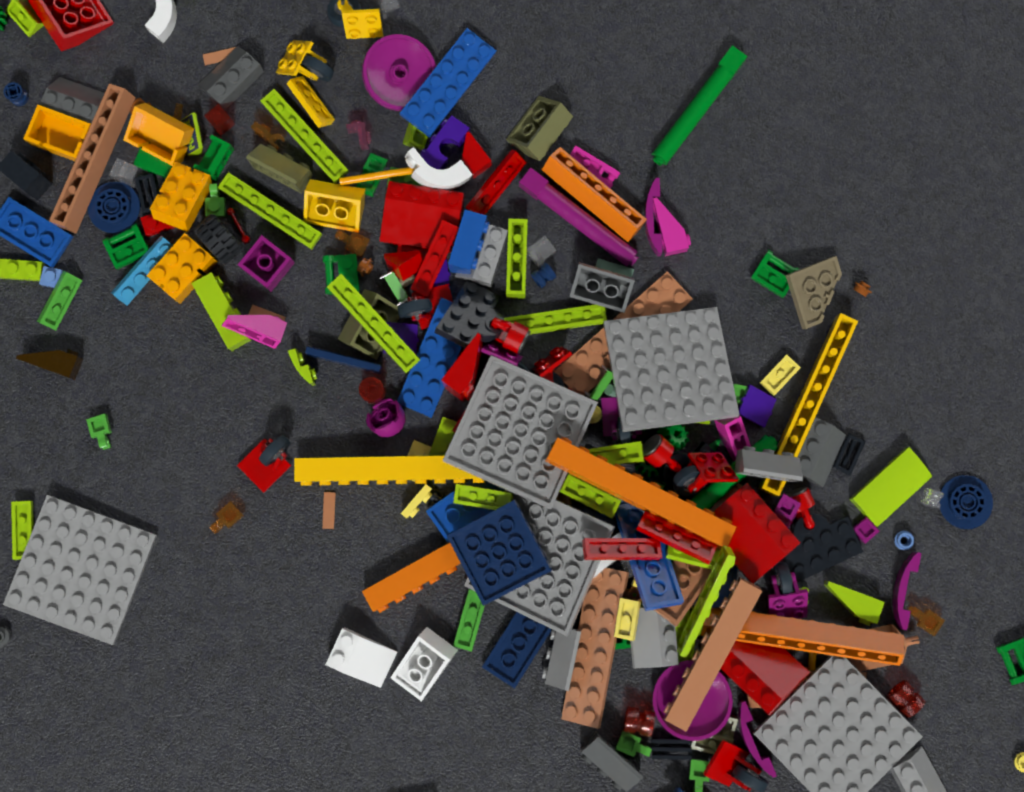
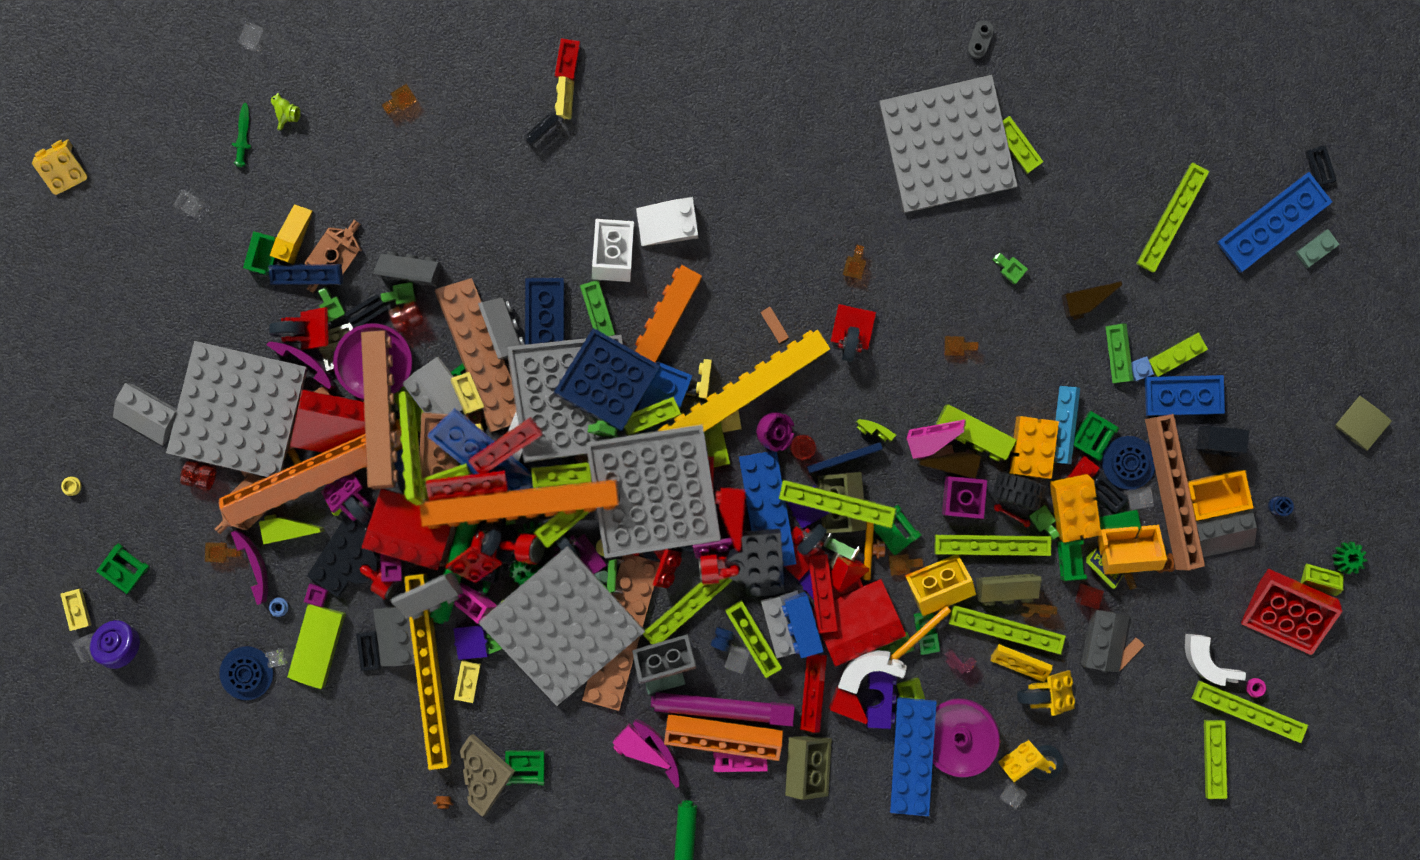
camera: 145 degrees right, 5 degrees up
(189, 393) = (955, 346): none -> clear orange plate
(253, 296) = (957, 463): none -> dark brown slope
(374, 271) = (868, 549): none -> light orange bar
(530, 512) = (603, 430): none -> bright green plate

